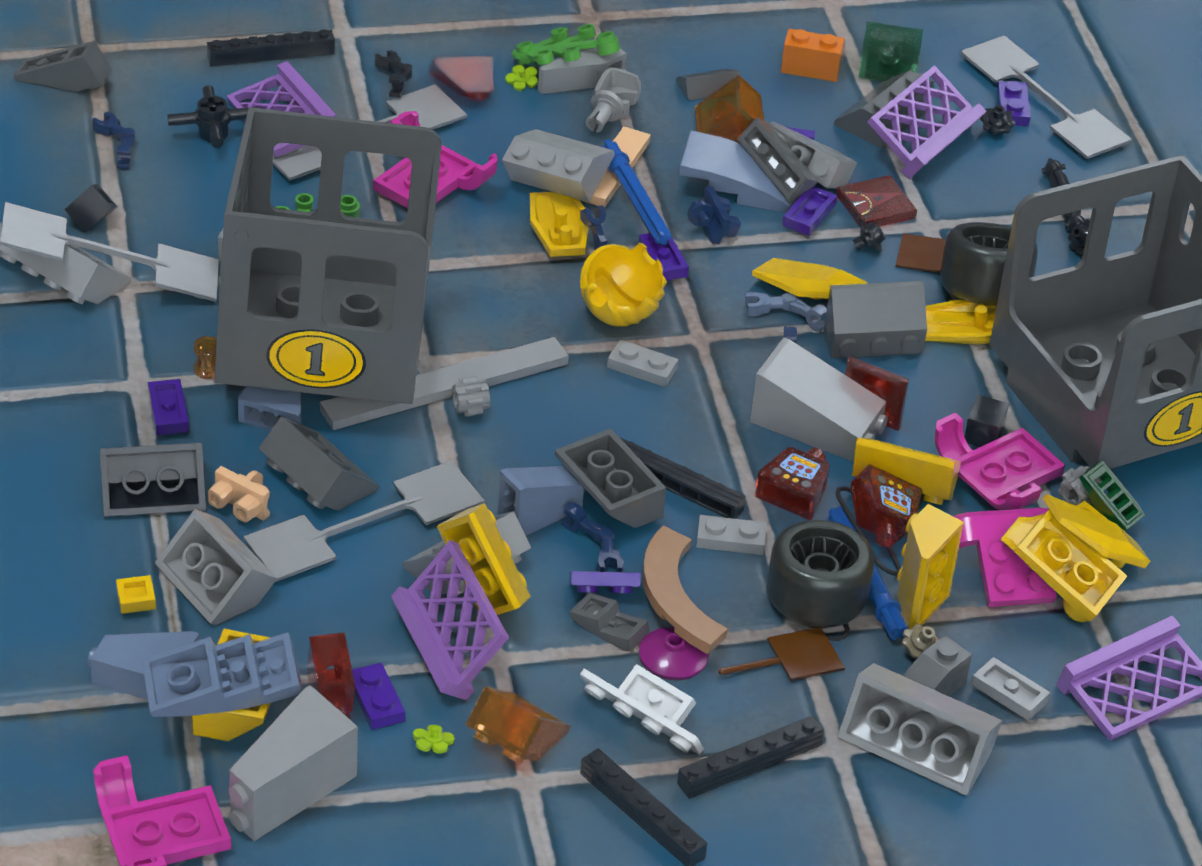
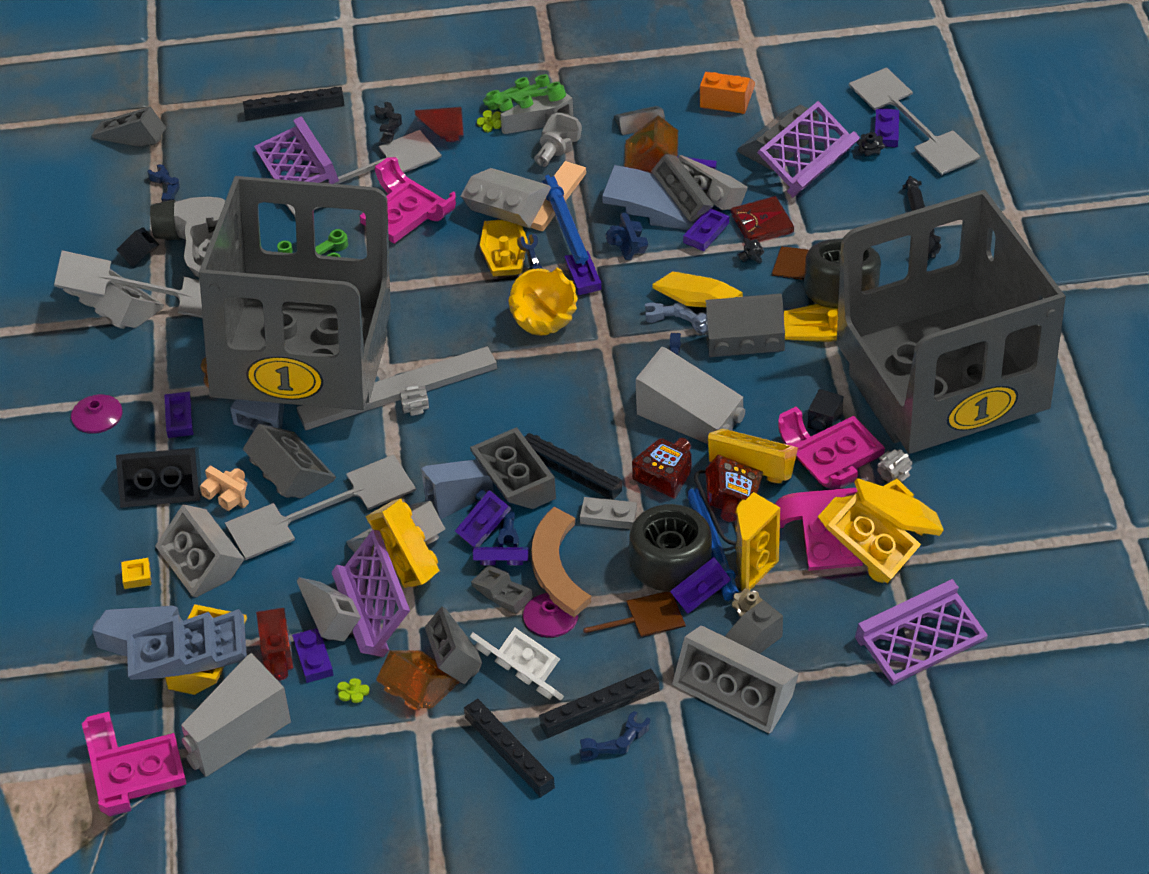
camera: 10 degrees right, 5 degrees up
(58, 404) = (96, 413): none -> magenta dish
(182, 186) = (187, 219): none -> light grey piece
(210, 116) = (239, 163): black bar -> none
(398, 642) = (331, 610): none -> light grey slope
(558, 686) = (452, 647): none -> dark grey slope
(577, 537) = (483, 519): none -> dark purple plate
(642, 363) = (556, 366): light grey plate -> none
(797, 789) = (591, 749): none -> dark blue piece
(862, 618) = (700, 585): none -> dark purple plate
(883, 384) = (741, 383): clear red slope -> none
(889, 51) = (788, 87): clear green slope -> none
(1010, 688) = (815, 642): light grey plate -> none
(1126, 509) = (922, 471): dark green slope -> none

